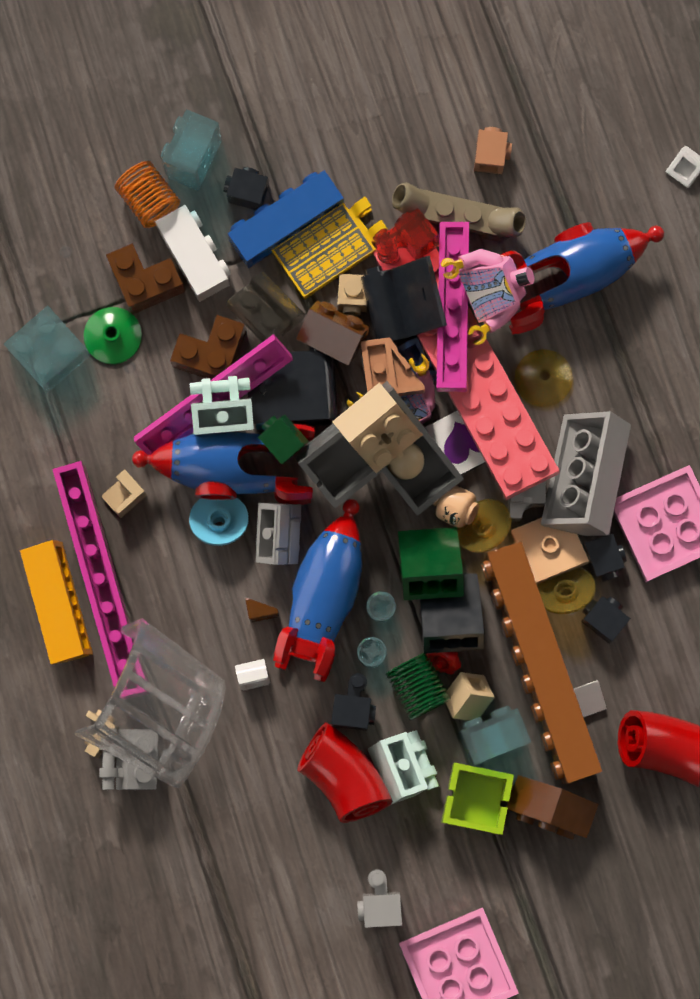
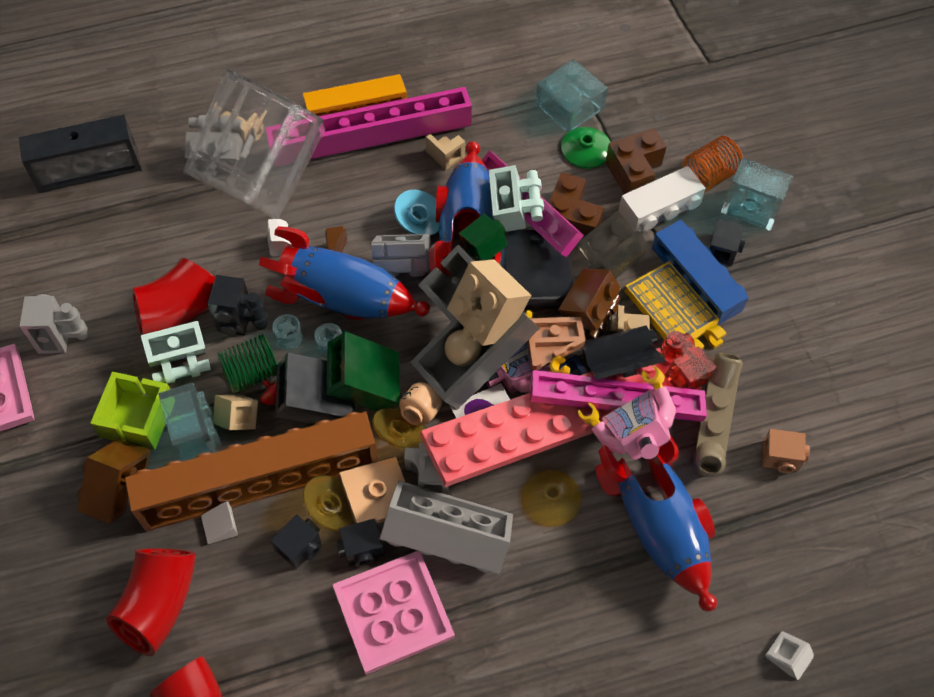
camera: 90 degrees right, 20 degrees down
(157, 937) = (80, 153): none -> black brick

